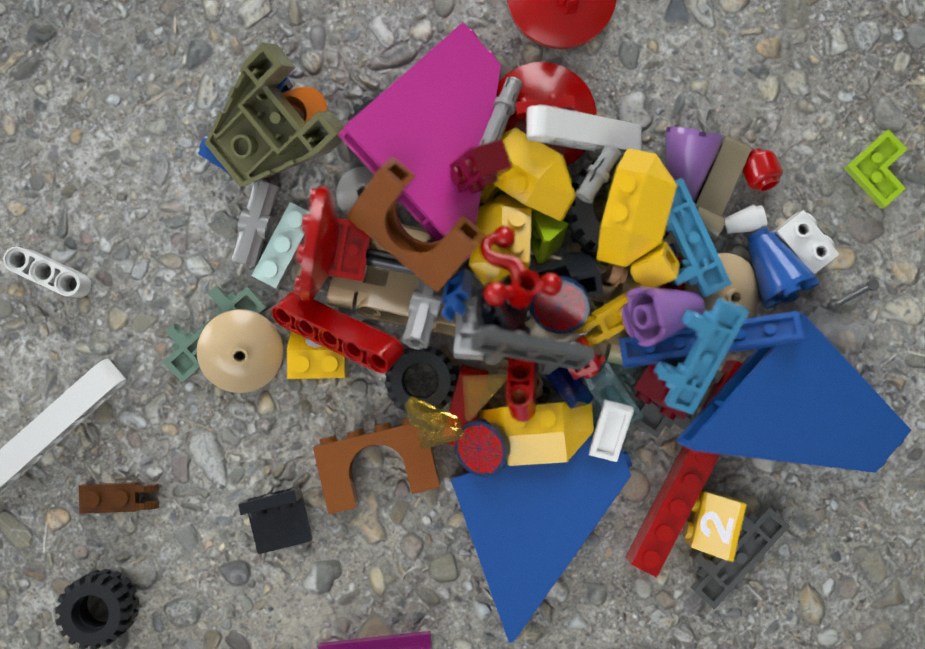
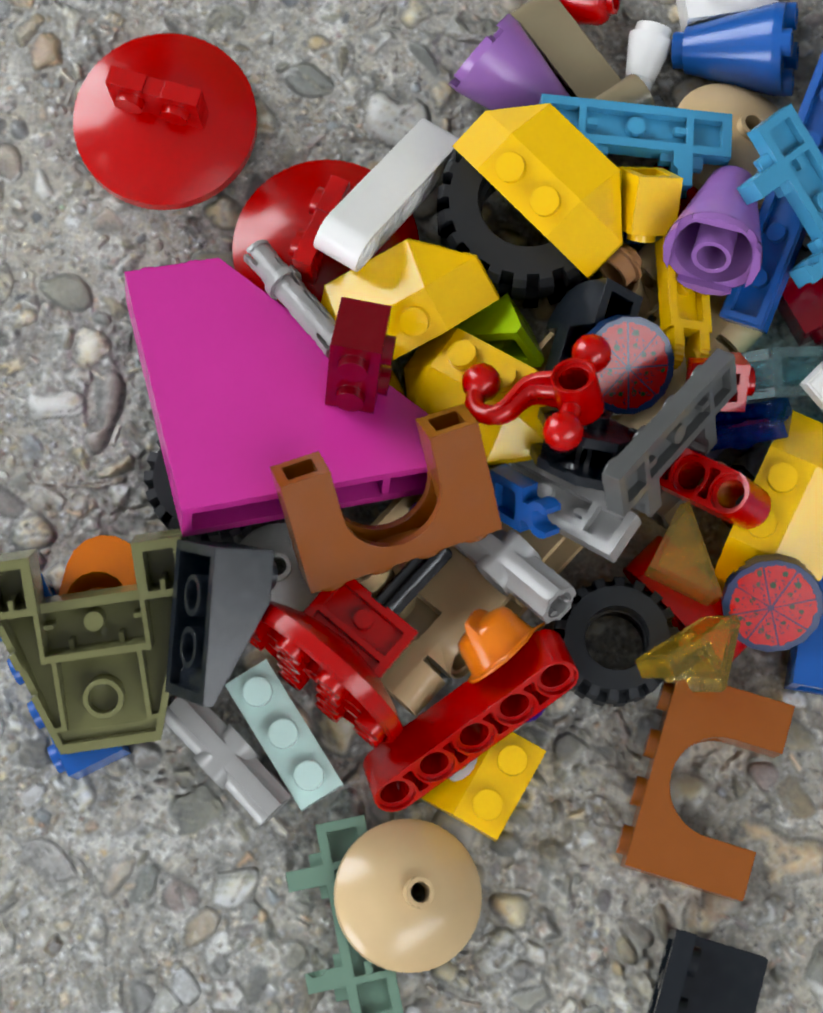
camera: 50 degrees left, 10 degrees down
(307, 175) = (215, 610): none -> black slope
(379, 320) = (492, 640): none -> orange piece
(598, 173) = (465, 204): light grey pin -> none

